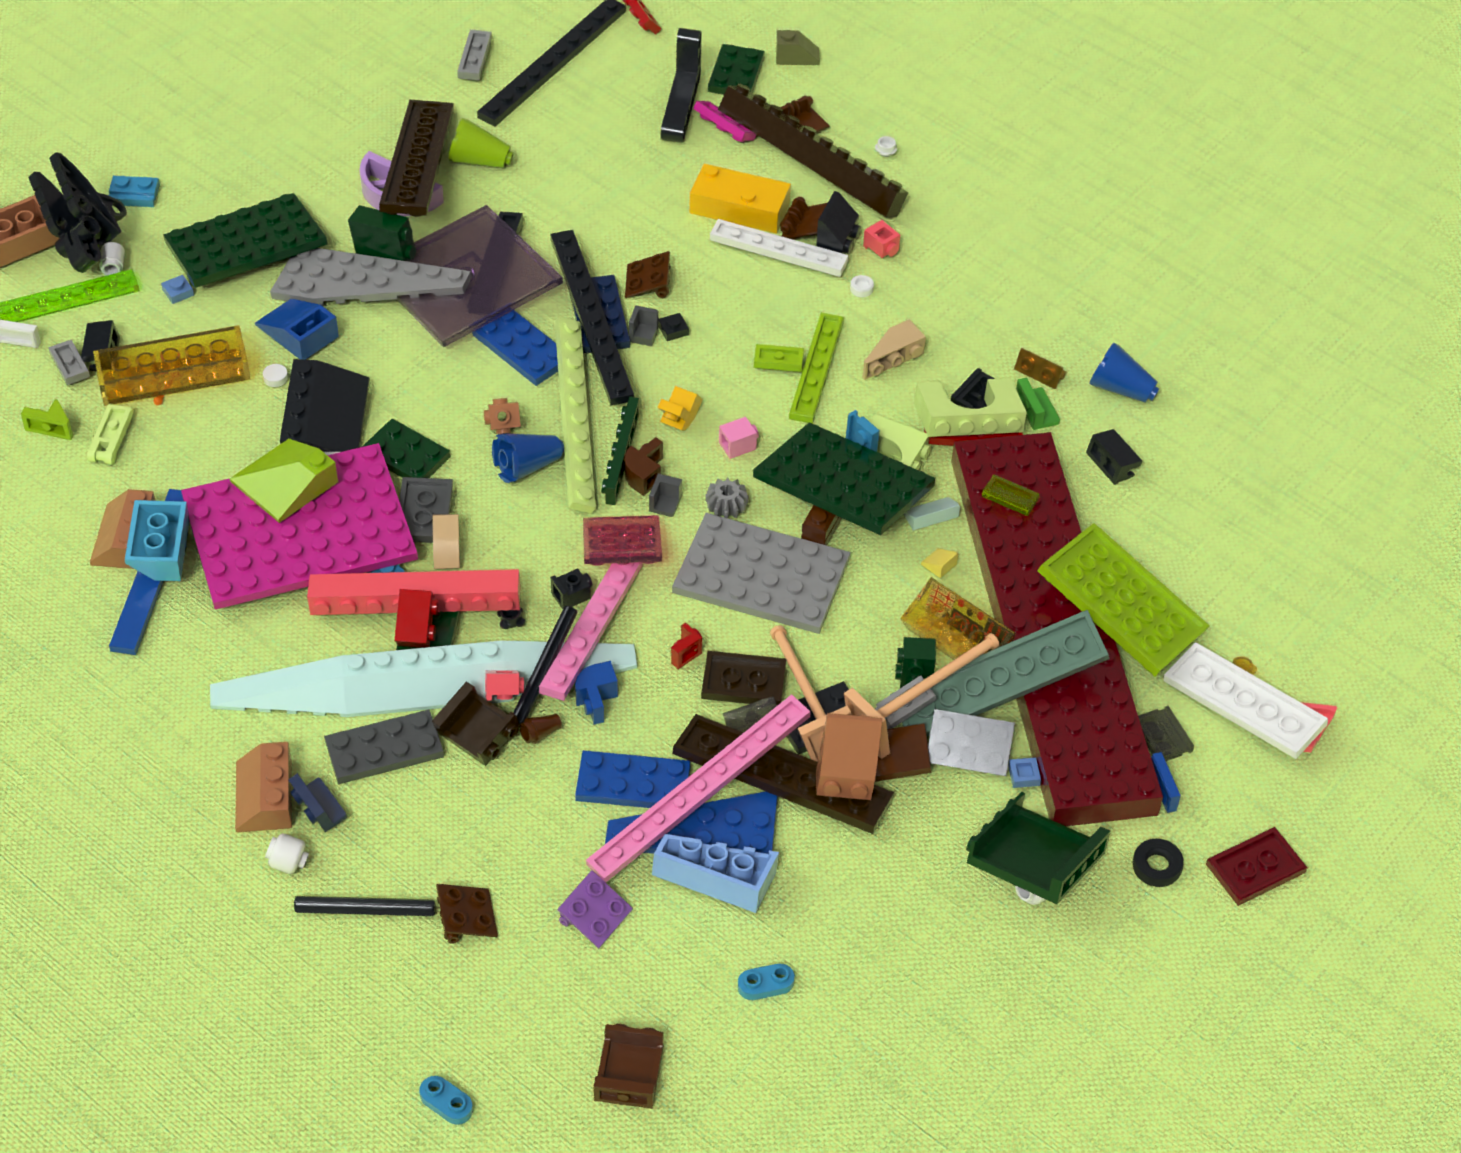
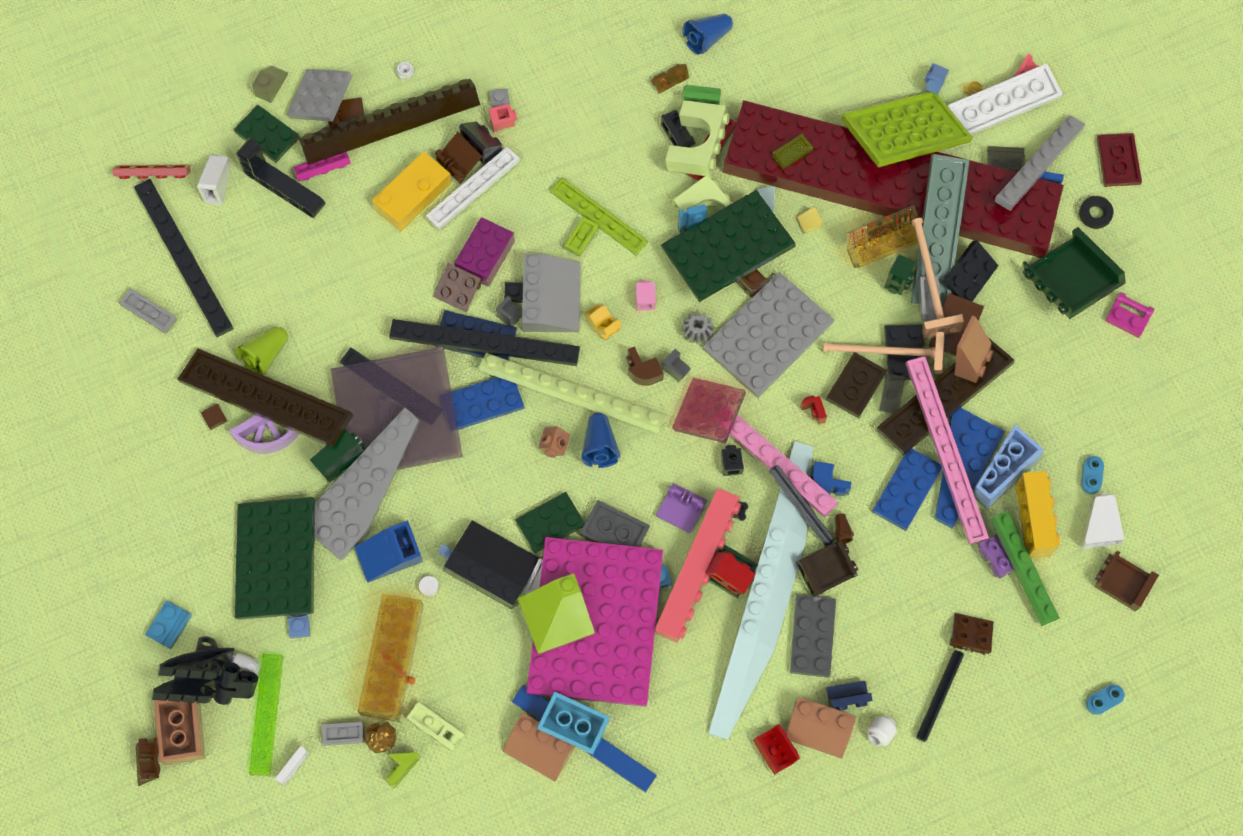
camera: 65 degrees left, 20 degrees up
(74, 388) = (380, 737): none -> pearl gold piece
(98, 337) = (337, 704): black hinge -> none
(213, 752) = (776, 749): none -> red bracket
(383, 144) = (214, 416): none -> reddish brown tile
(446, 541) = (657, 525): tan slope -> none
(487, 555) = (681, 508): none -> medium lavender hinge
(503, 684) = (804, 538): coral brick -> none
(583, 937) = (1024, 568): none -> bright green plate
(625, 435) = (621, 376): dark green plate -> none
(650, 45) = (215, 179): none -> white slope
(664, 921) = (1037, 514): none -> yellow brick
(688, 353) = (551, 294): none -> light grey slope
(698, 1010) = (1103, 523): none -> white slope
(704, 281) = (485, 250): none -> magenta brick
(804, 86) = (319, 95): none -> light grey plate
(861, 286) = (535, 151): white tile -> none
(896, 347) = (608, 157): tan slope -> none
(909, 234) = (499, 97): none -> light grey plate
(1020, 951) = (1128, 320): none -> dark pink plate
(1024, 772) = (1002, 253): medium blue plate -> none
(1113, 455) = (770, 73): black hinge -> none
(1177, 759) = (1039, 163): none -> light grey plate
(1223, 618) = (935, 78): none -> medium blue brick

